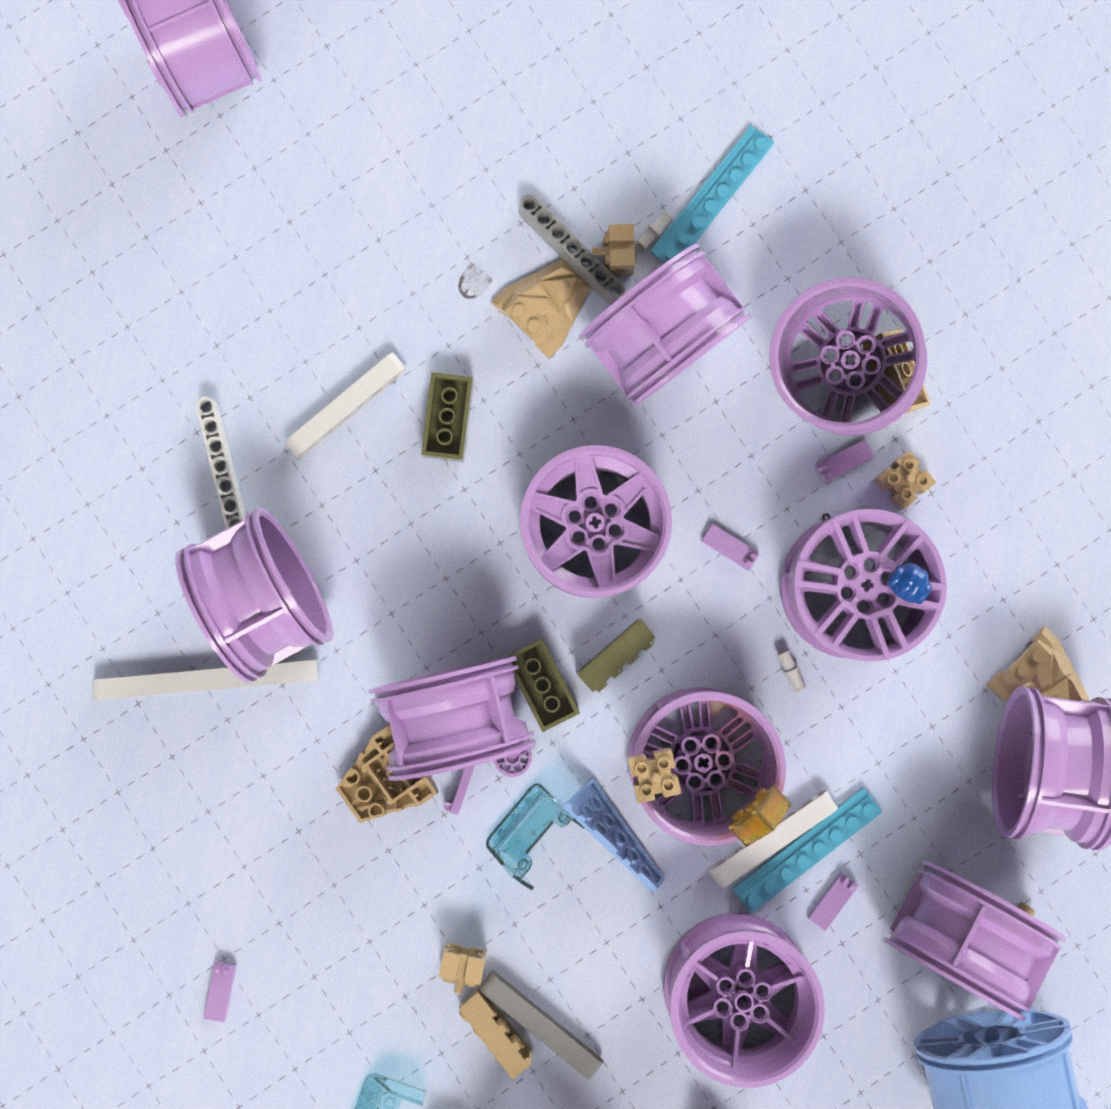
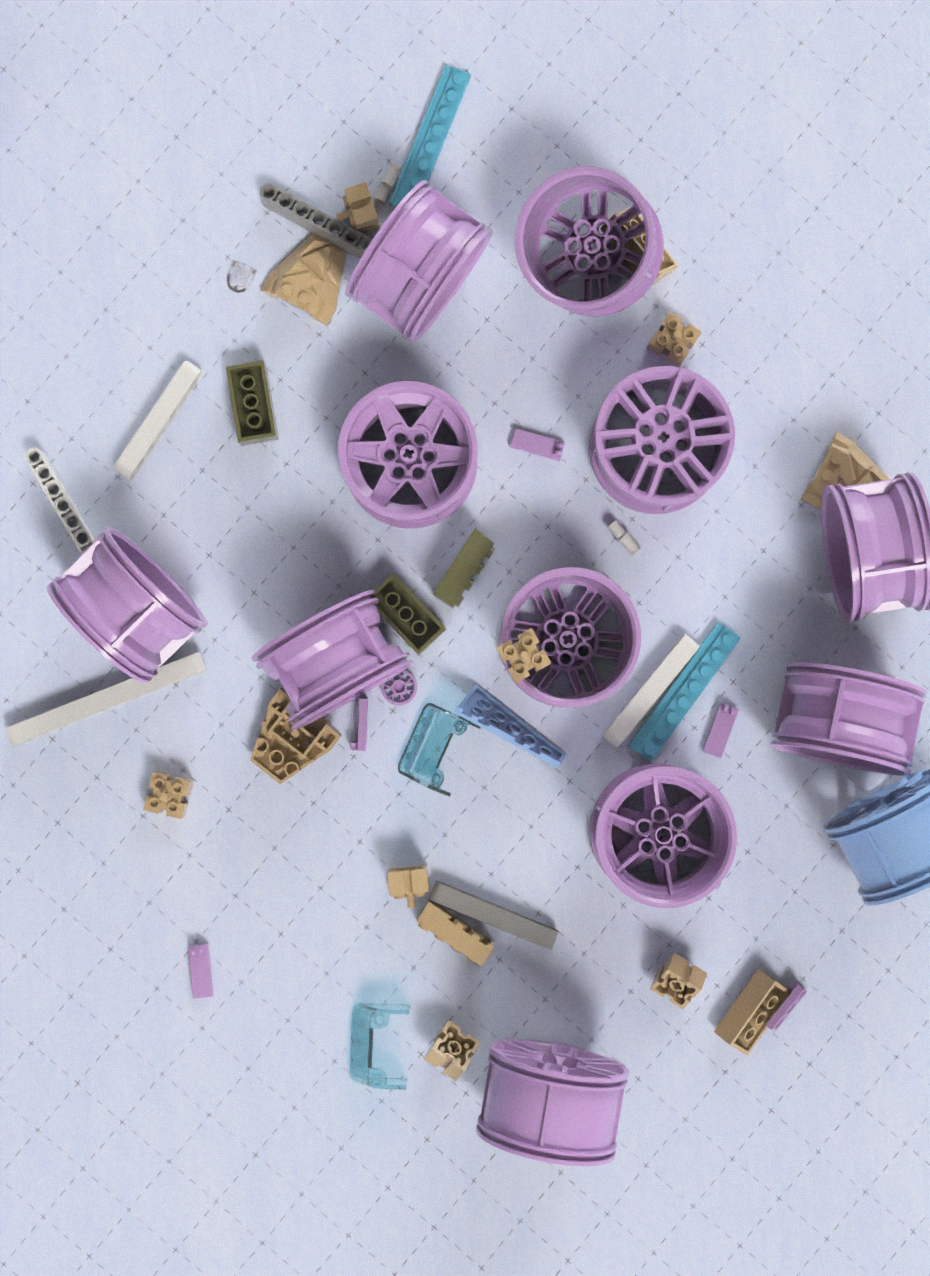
camera: 10 degrees left, 0 degrees up
(240, 799) = (168, 795): none -> tan brick
(760, 816) = (626, 663): clear yellow brick -> none
(844, 461) = (616, 338): lavender hinge -> none
(910, 583) = (698, 422): blue hair -> none

